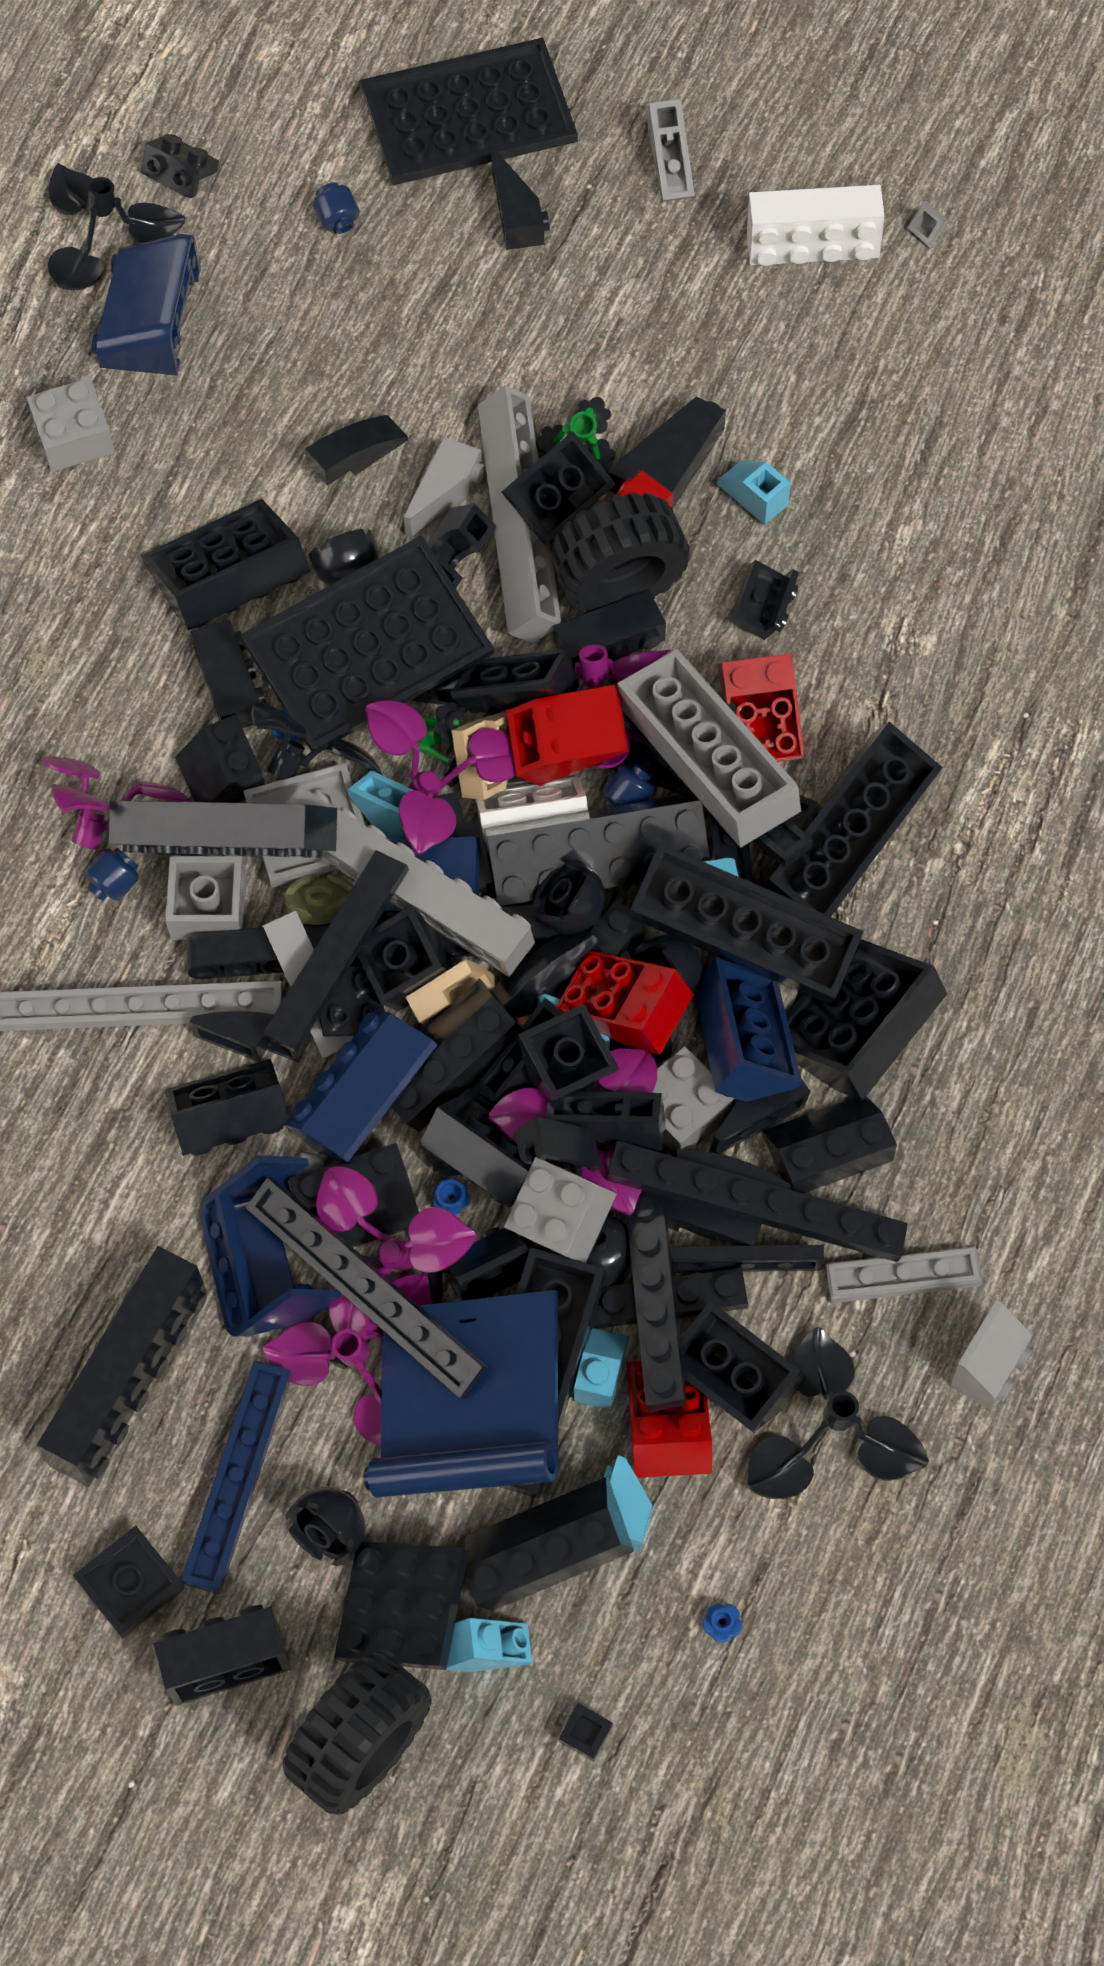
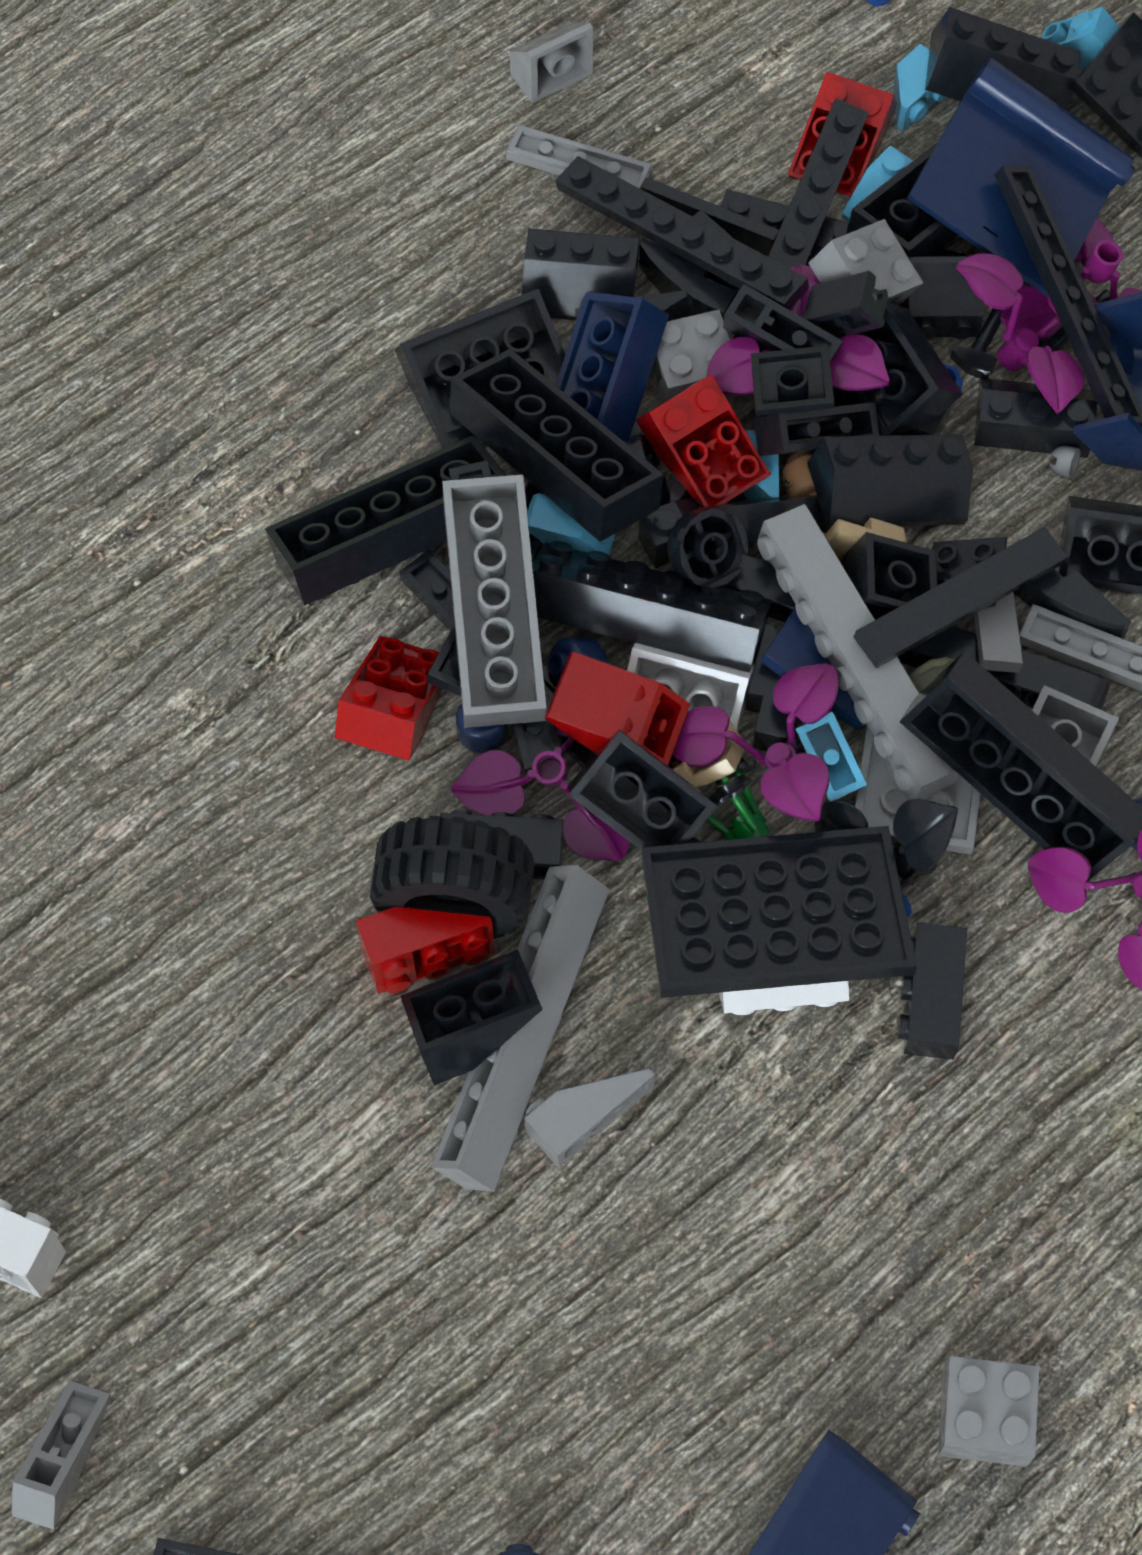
camera: 155 degrees left, 0 degrees up
(220, 763) = (985, 889): black slope -> none
(227, 564) = (878, 1137): black slope -> none
(344, 555) = (742, 1063): black cylinder -> none
(354, 447) = (660, 1212): black slope -> none
(360, 1085) = (988, 482): dark blue slope -> none
(459, 535) = (601, 1036): black arch -> none
(518, 207) = (295, 1457): black slope -> none
(585, 424) = (398, 1069): plant -> none
(675, 448) = (314, 1022): black slope -> none
(737, 1368) = (767, 130): black slope -> none
(757, 488) = (248, 935): medium azure slope -> none
(764, 600) = (316, 805): black bracket -> none
(888, 1446) = (676, 40): black plant -> none

